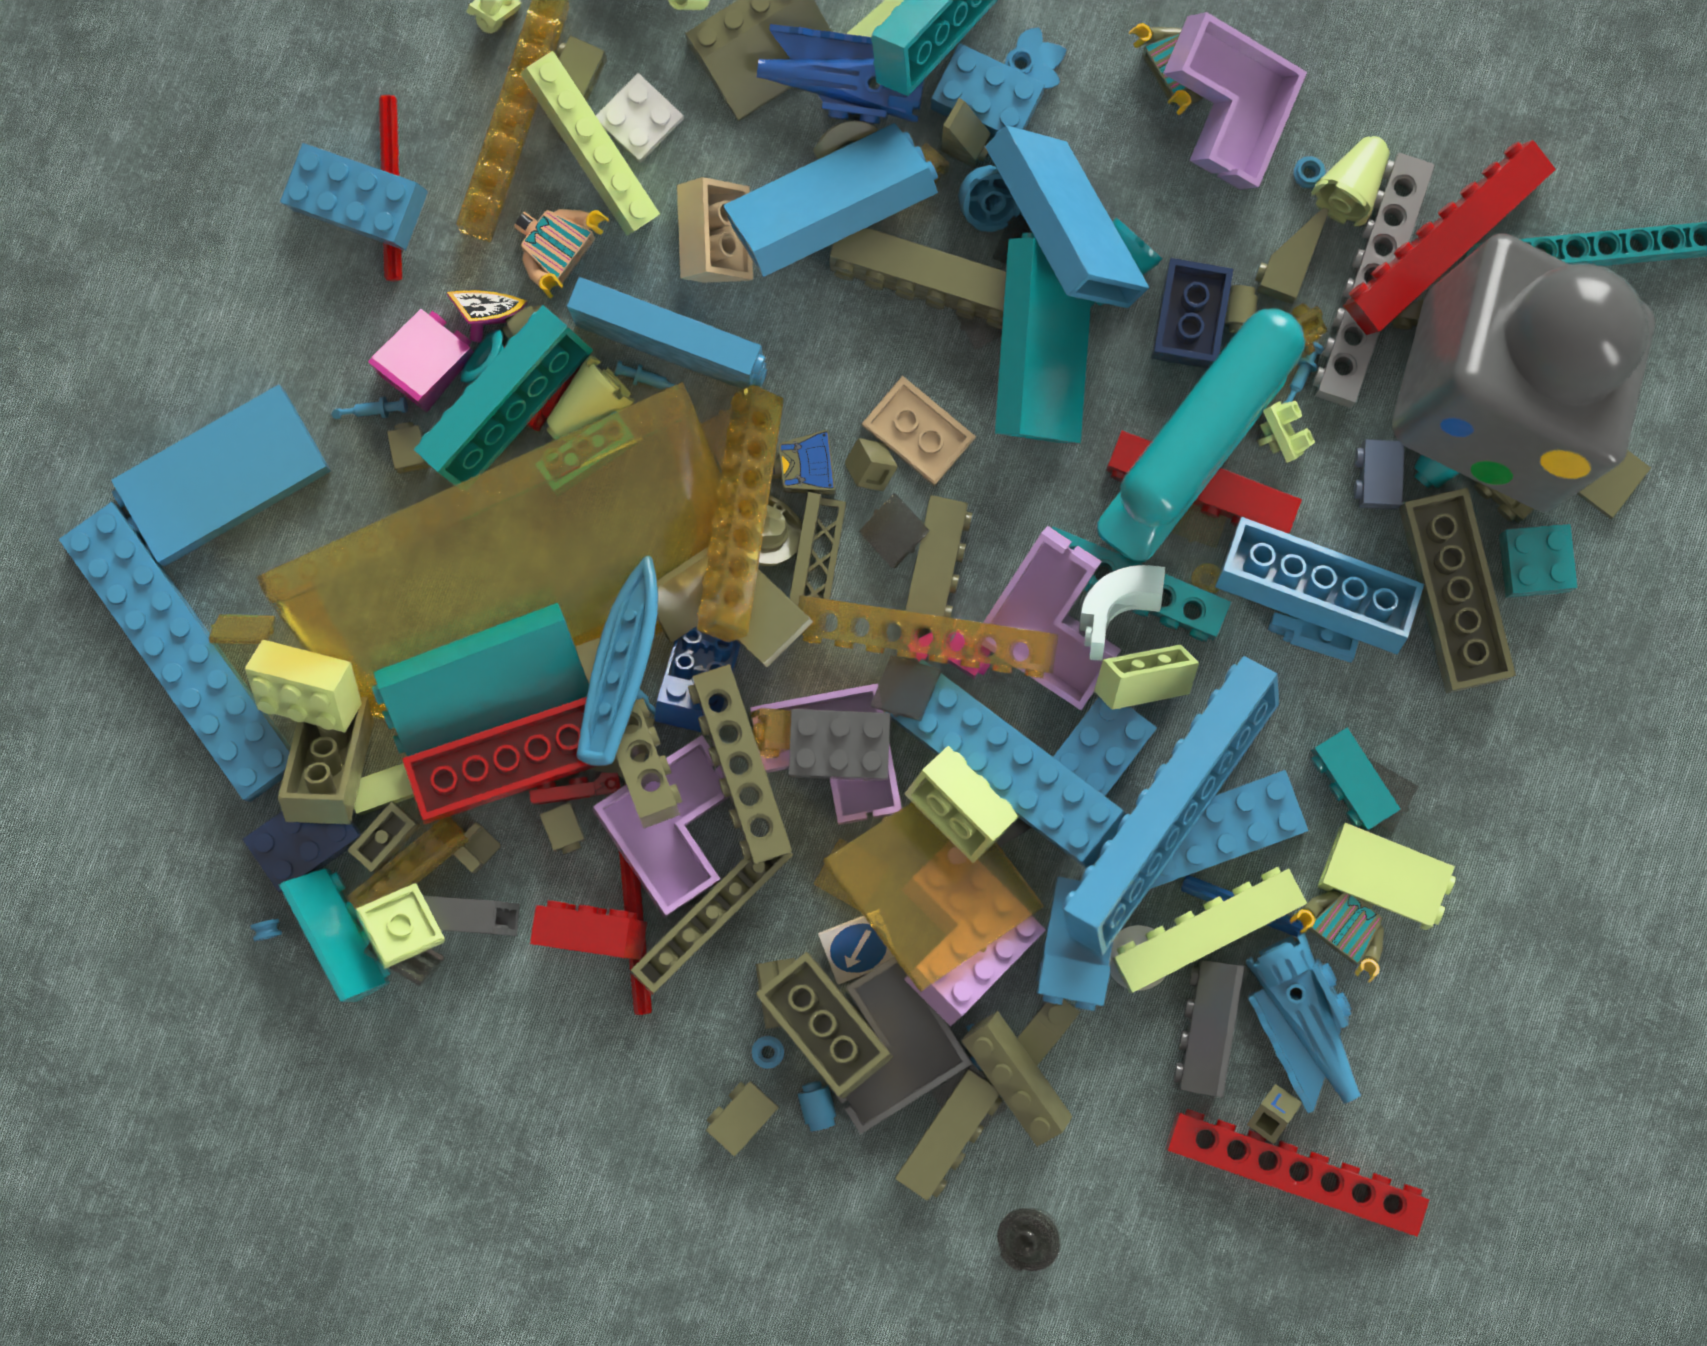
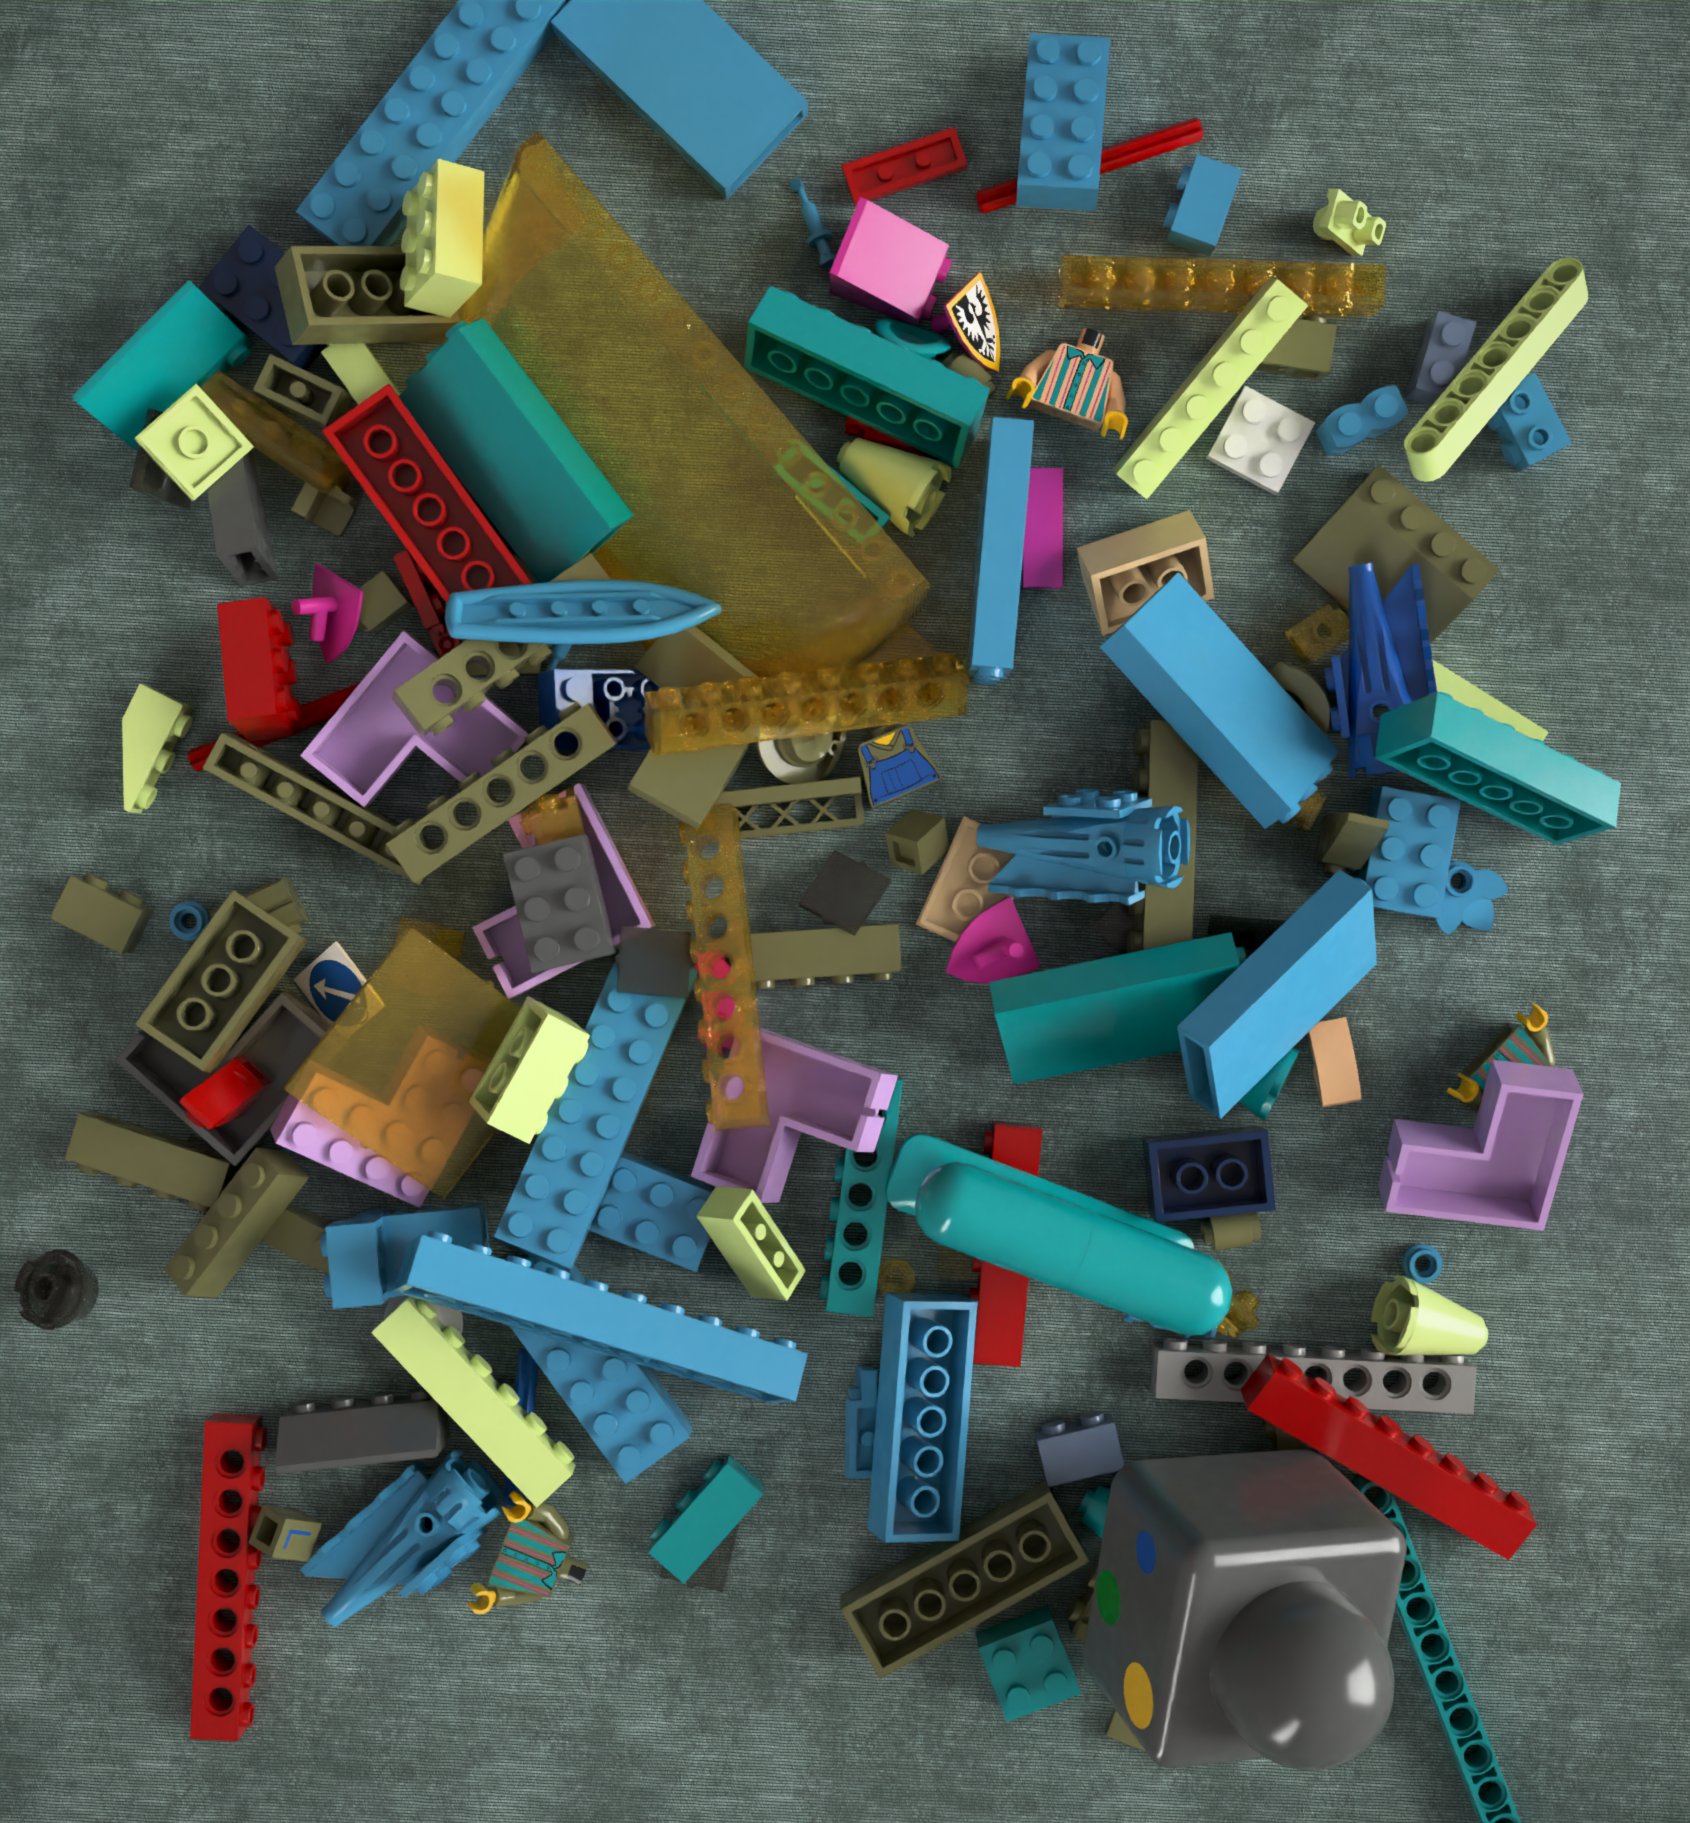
camera: 70 degrees right, 5 degrees up
(242, 629) = (497, 142): clear yellow piece -> none
(266, 930) = (156, 287): dark azure bush -> none
(349, 327) = (905, 166): none -> red plate
(402, 443) = (780, 273): olive brick -> none
(447, 110) = (1203, 204): none -> dark azure brick
(559, 863) = (333, 612): none -> dark pink shield
(612, 1038) = (148, 738): none -> yellowish green slope
(643, 376) = (945, 545): dark azure piece -> none
(647, 37) = (1361, 420): none -> dark azure brick
(662, 296) = (1044, 530): none -> dark pink tile
(802, 125) = (1304, 635): none -> clear yellow brick
(817, 1106) = (136, 995): dark azure brick -> none
(912, 1050) = (225, 1094): none -> red slope
(914, 329) = (1091, 848): none -> dark azure piece
(969, 429) = (993, 947): none -> dark pink shield
(986, 199) = (1277, 888): dark azure cylinder -> none
(1118, 592) = (843, 1184): light aqua arch -> none
(1134, 195) = (1334, 1063): none -> light nougat slope
(1280, 433) = (1089, 1322): yellowish green hips -> none
(1288, 265) = (1298, 1271): olive slope -> none
(1388, 875) = (602, 1587): yellowish green panel -> none

